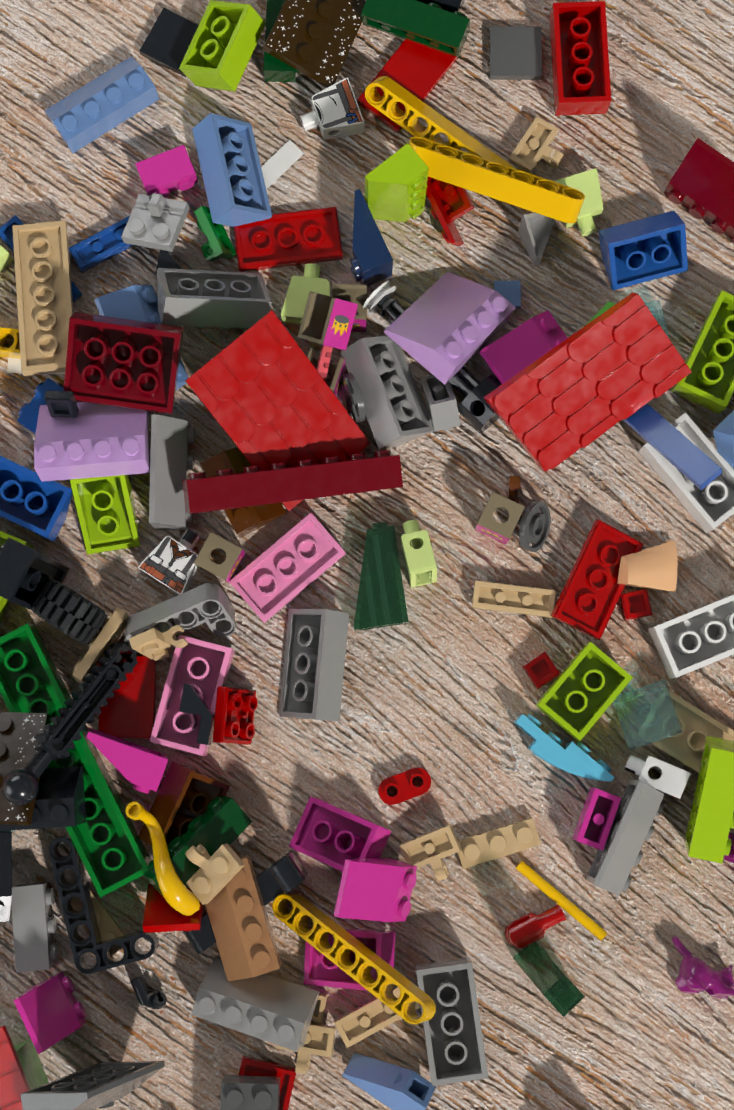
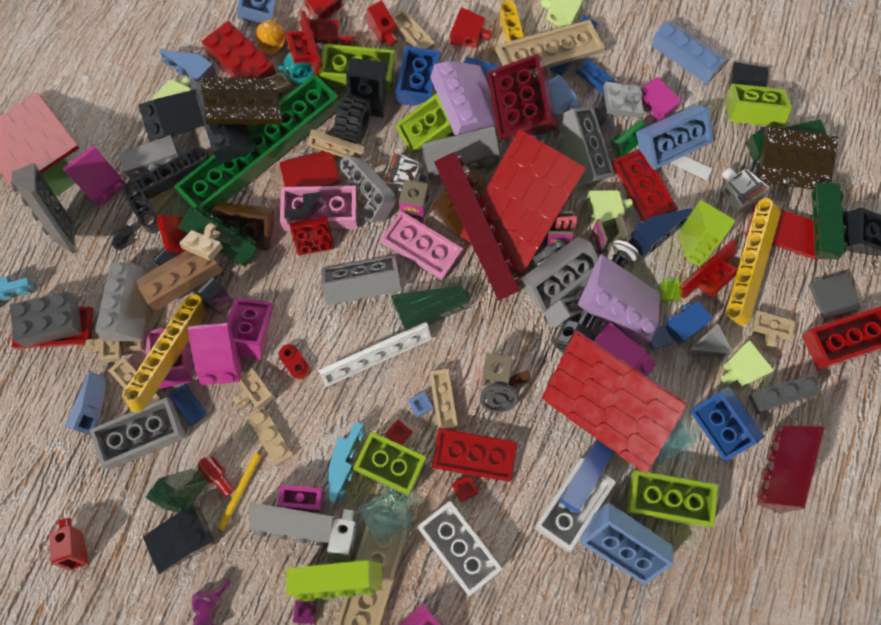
camera: 75 degrees right, 10 degrees down
(22, 785) = (228, 109): black gear -> none
(61, 404) = (483, 72): black tile -> none
(136, 763) = (266, 179): dark pink slope -> none
(157, 644) = (345, 172): tan plate -> none
(169, 883) = (187, 216): yellow animal -> none
(327, 320) = (594, 216): piece -> none
(419, 562) = (453, 324): yellowish green torso -> none
(424, 946) = (188, 404): none -> blue tile
(428, 672) = (375, 354): none -> white tile
(448, 258) = (670, 291): none -> clear neon green tile
(499, 181) = (735, 300): yellow beam -> none
(500, 250) = (688, 323): none -> blue brick
(510, 630) = (421, 404): none -> medium blue tile
(609, 994) = (178, 539): none -> black slope
(627, 165) = (785, 394): none -> dark grey brick
(651, 568) = (494, 491): light nougat slope -> none

